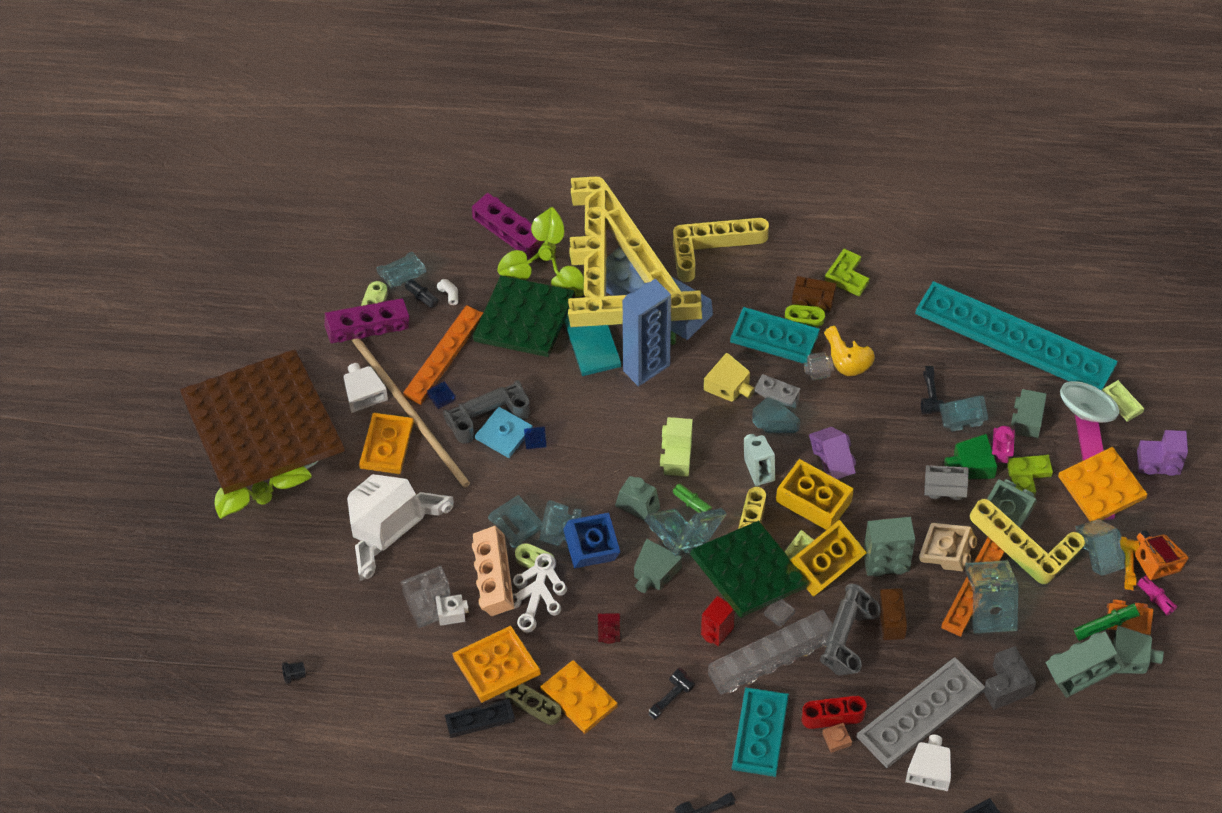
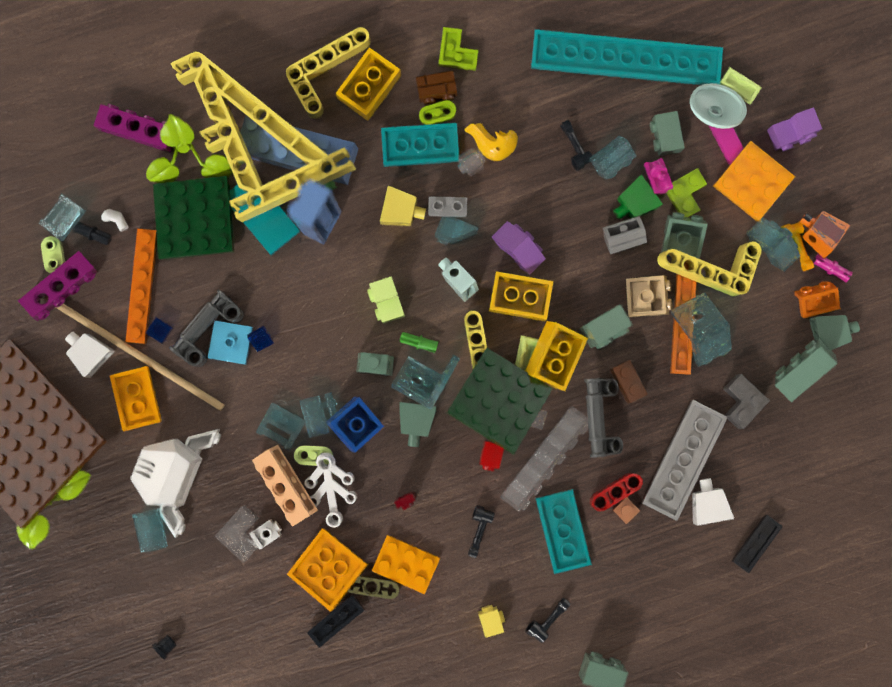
camera: 25 degrees left, 30 degrees up
(338, 557) = (149, 530): none -> clear light blue brick
(643, 783) = (491, 620): none -> light yellow brick
(748, 266) = (368, 84): none -> yellow brick
(1105, 622) = (806, 314): green pin -> none

